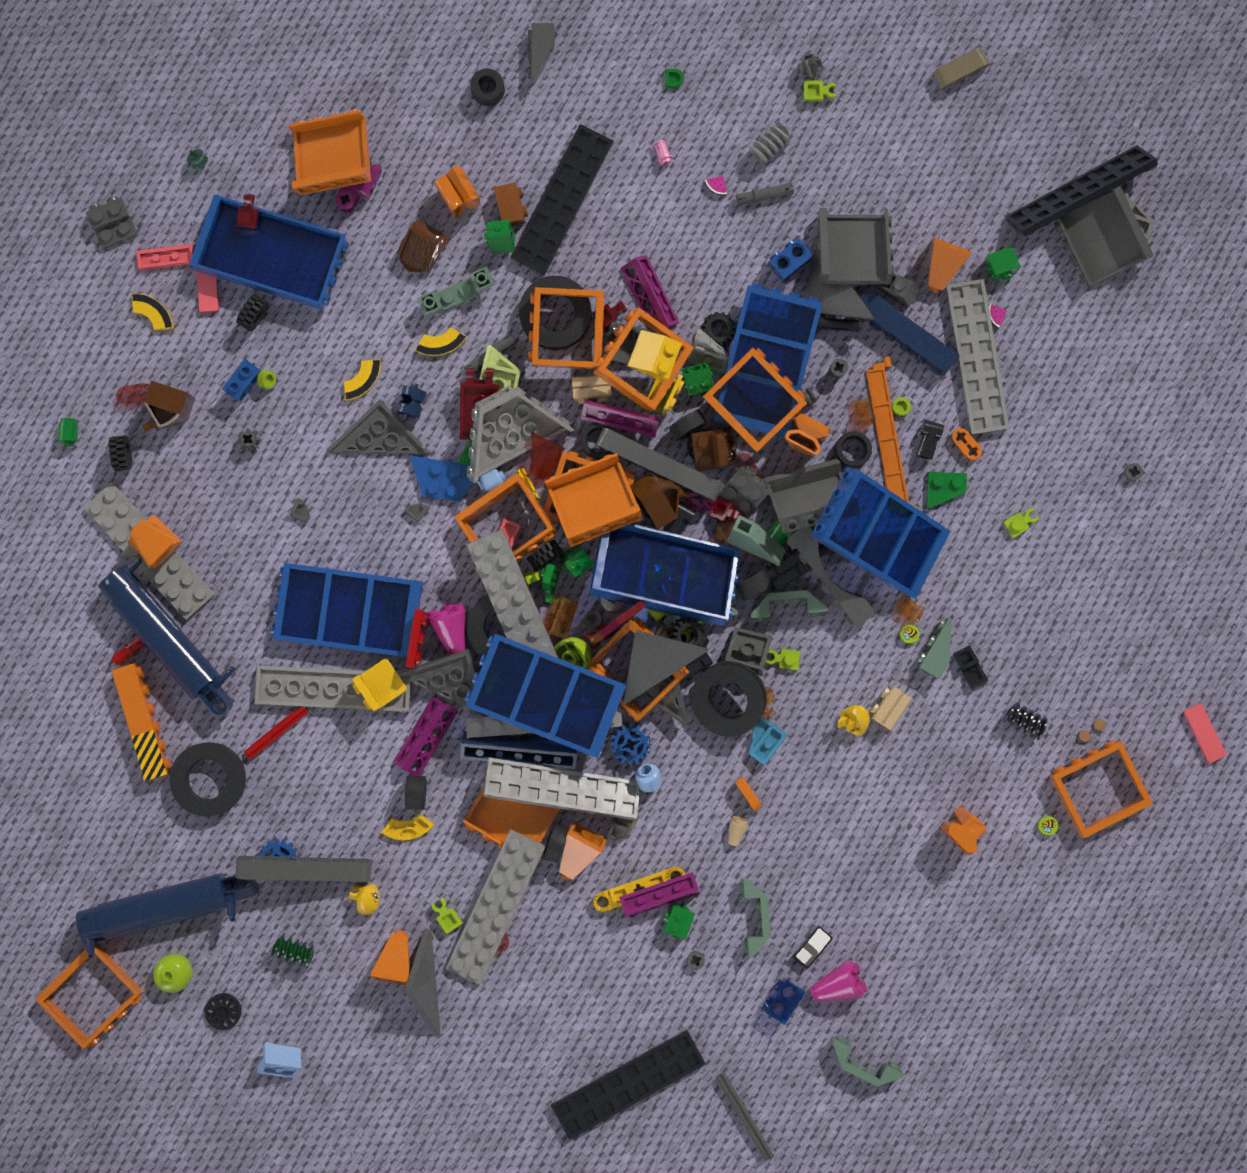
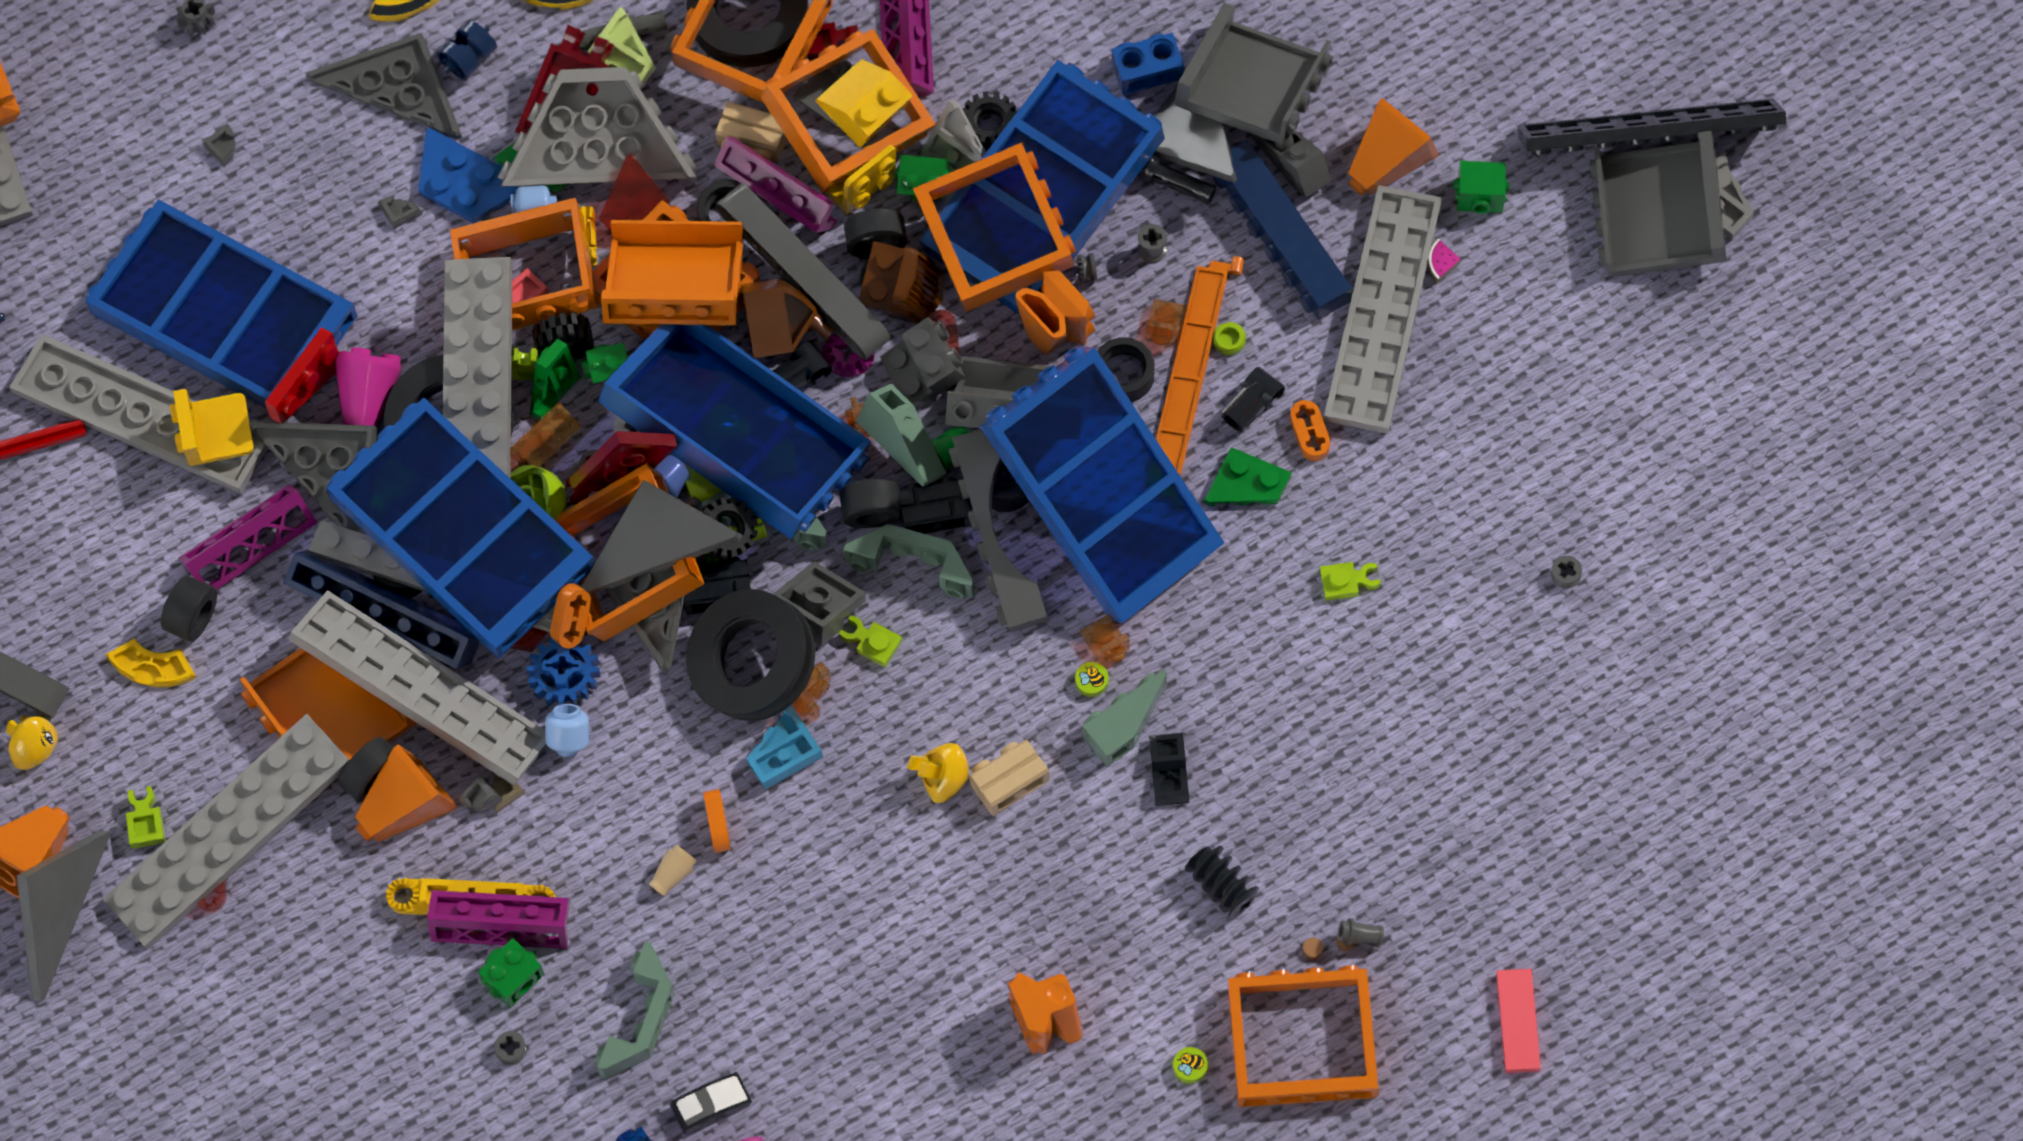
camera: 30 degrees right, 20 degrees down
(625, 718) = (570, 614): none -> orange beam
(723, 511) = (871, 379): dark red plate -> none
(1104, 722) = (1360, 933): none -> dark grey pin

